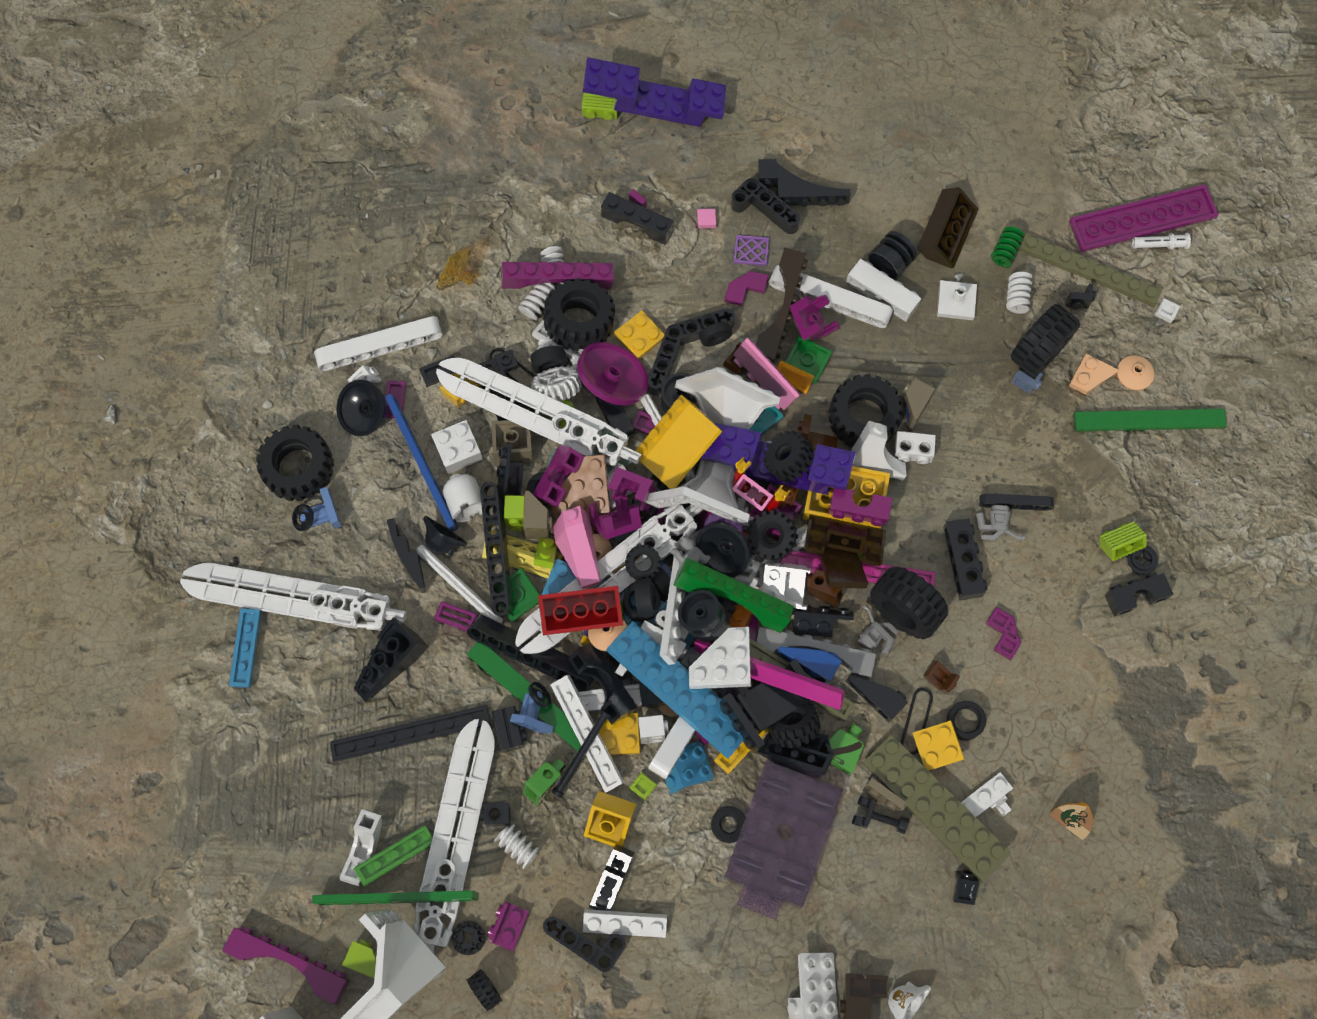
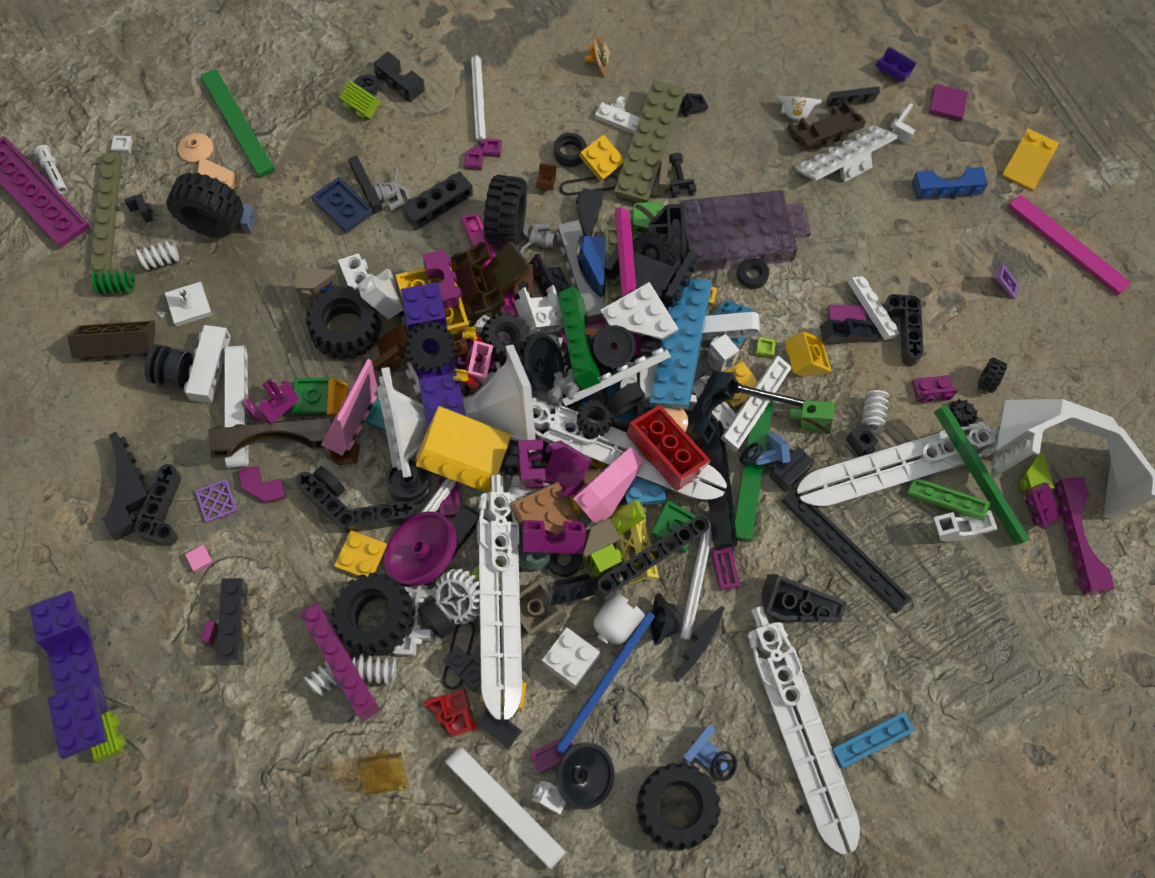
camera: 125 degrees left, 5 degrees down
(334, 941) = (1042, 505): none -> magenta bracket
(470, 343) = (453, 712): none -> red slope
(633, 891) = (842, 312): none -> magenta tile
(1002, 471) = (342, 205): none -> dark blue plate
(1077, 663) = (478, 98): none -> white axle

